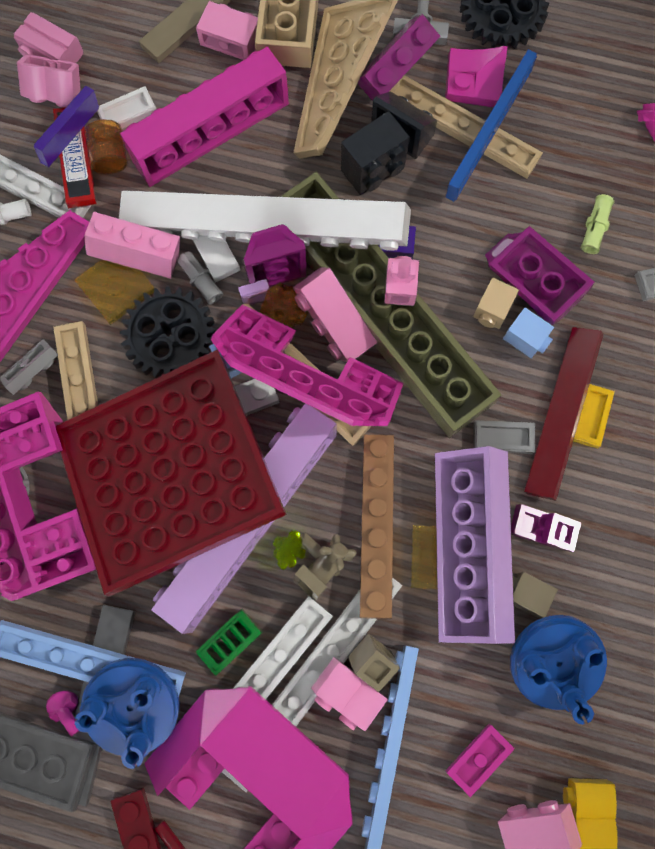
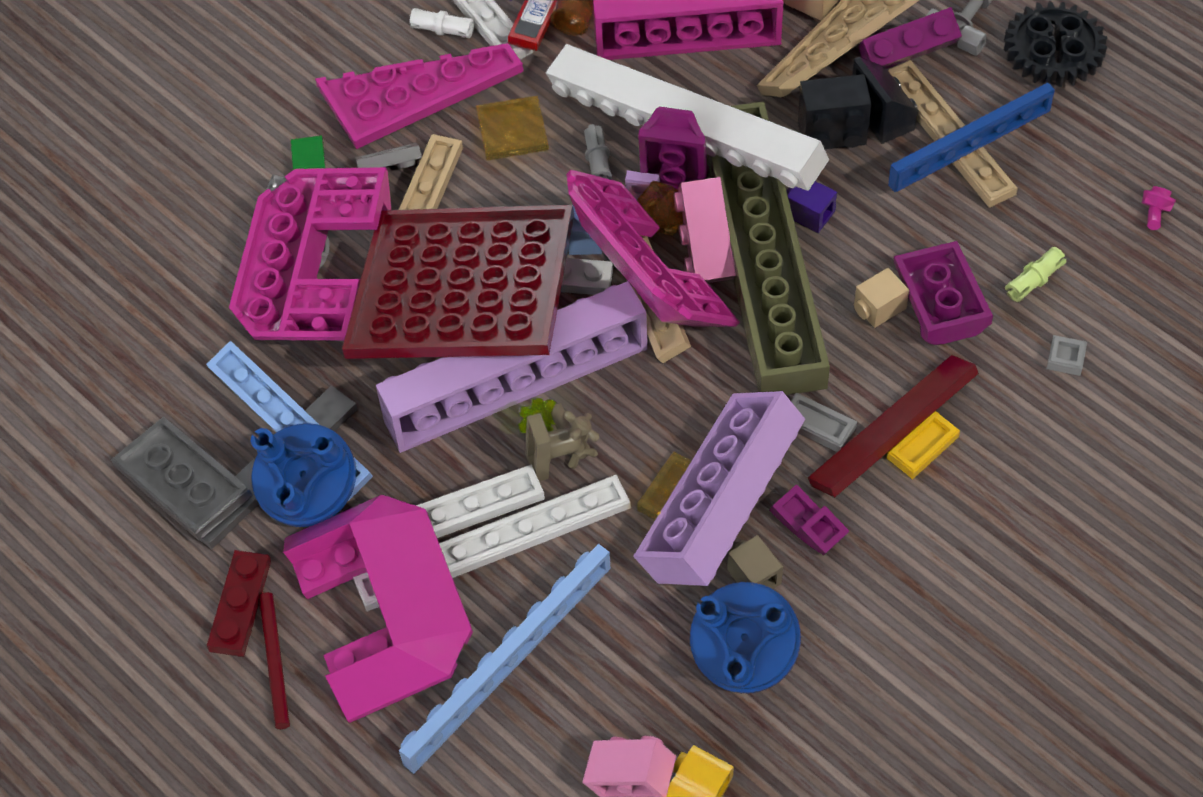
camera: 30 degrees right, 20 degrees down
(60, 707) = (240, 453): dark pink plate -> none
(132, 245) = (548, 95): bright pink brick -> none
(155, 311) = (533, 175): black gear -> none
(217, 257) = (624, 143): white tile -> none
(254, 631) = (444, 480): green slope -> none
(347, 694) = (516, 565): bright pink brick -> none
(373, 662) = (557, 545): dark tan brick -> none
(377, 527) = (636, 438): medium nougat plate -> none
(401, 281) = (785, 221): bright pink brick -> none
(475, 75) = (986, 89): dark pink plate -> none
(479, 760) = (611, 689): dark pink plate -> none
(529, 333) = (899, 338): light blue brick -> none

